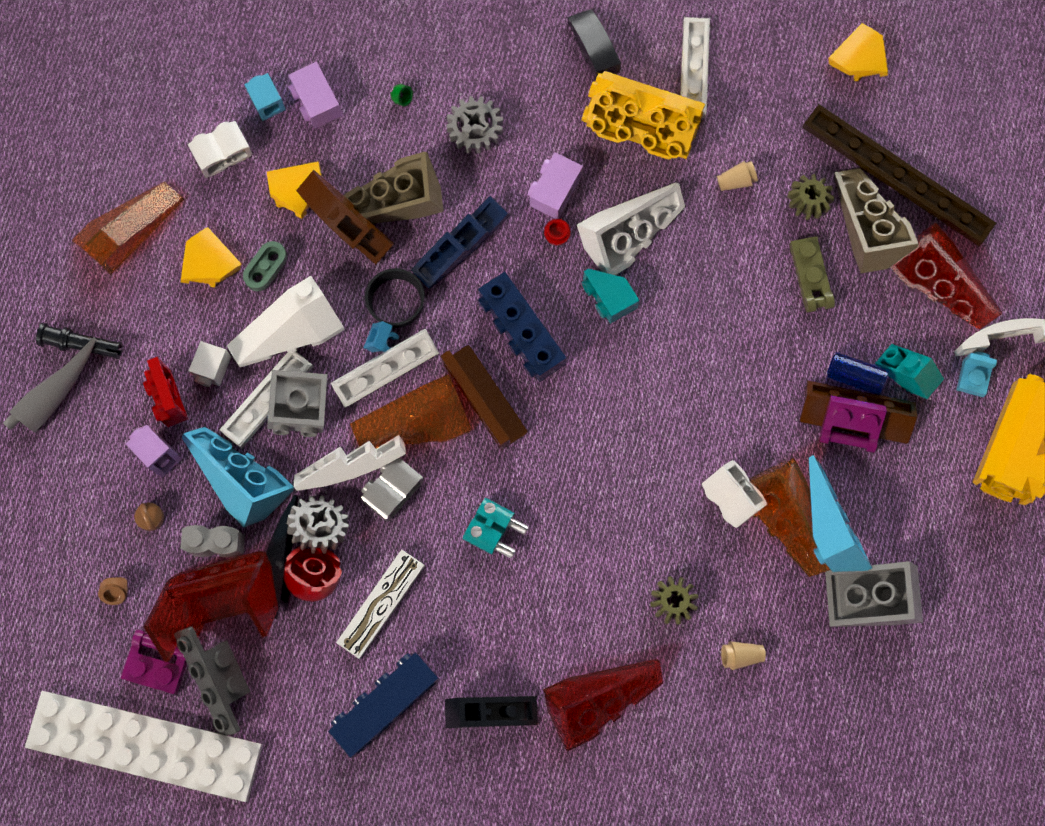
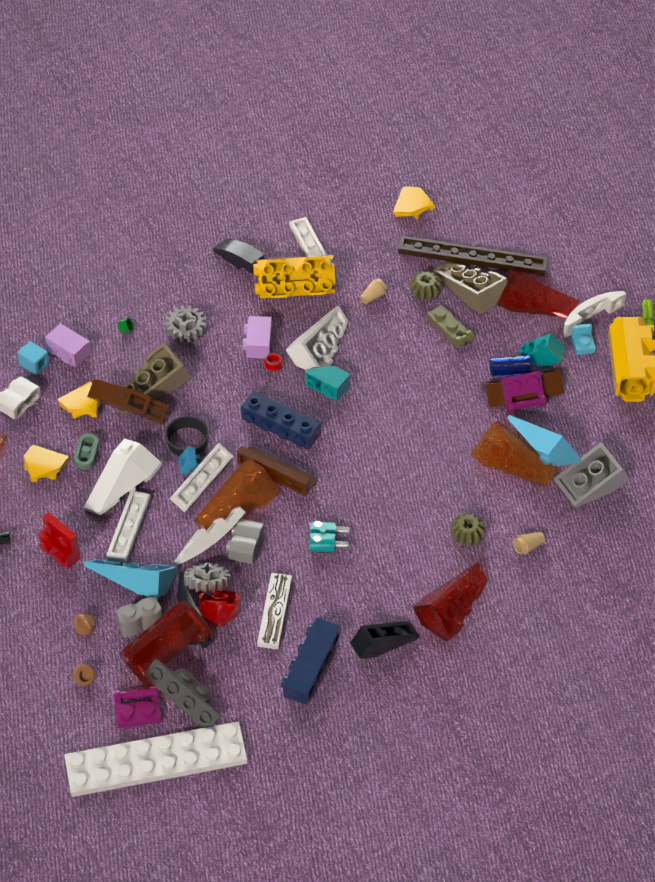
camera: 30 degrees left, 25 degrees down
(153, 450) = (70, 577): lavender brick -> none
(209, 364) = (79, 518): white brick -> none
(297, 402) = (154, 516): light grey plate -> none
(460, 242) = (213, 389): dark blue slope -> none
(734, 494) = (471, 455): white brick -> none

